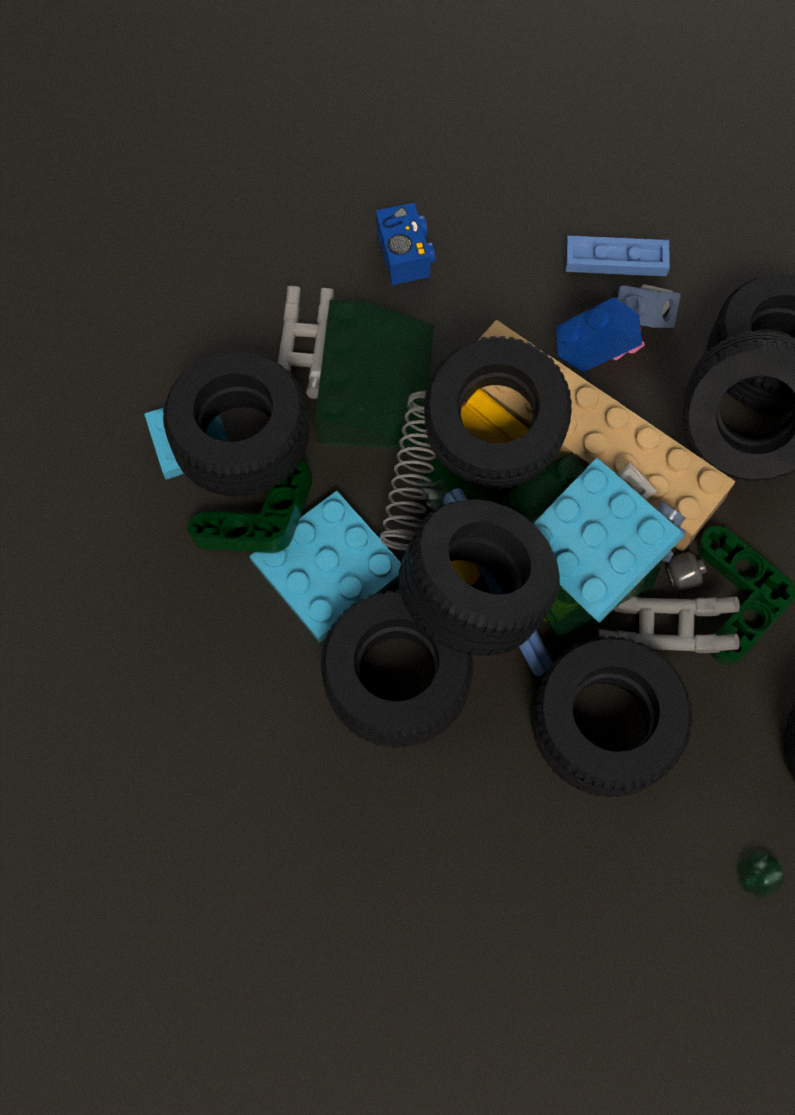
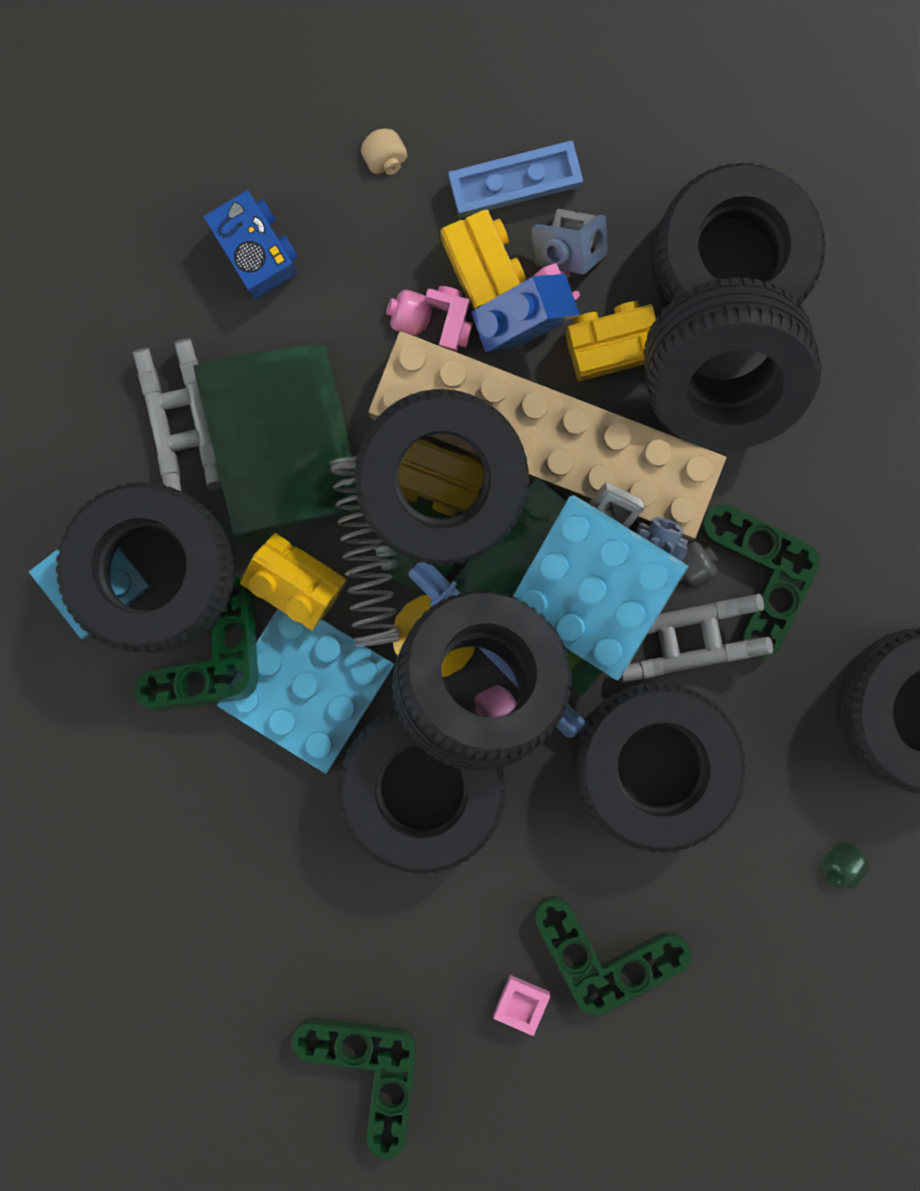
camera: 20 degrees left, 20 degrees up
(273, 921) = (386, 1071): none -> dark green beam
(347, 477) = (293, 581): none -> yellow brick
(421, 899) = (521, 1005): none -> bright pink plate
(497, 890) = (594, 972): none -> dark green beam
(509, 318) = (409, 312): none -> bright pink piece
(522, 216) = (383, 151): none -> tan piece
(541, 325) = (456, 328): none -> bright pink bracket
(571, 290) = (480, 258): none -> yellow brick
(657, 381) = (609, 342): none -> yellow brick

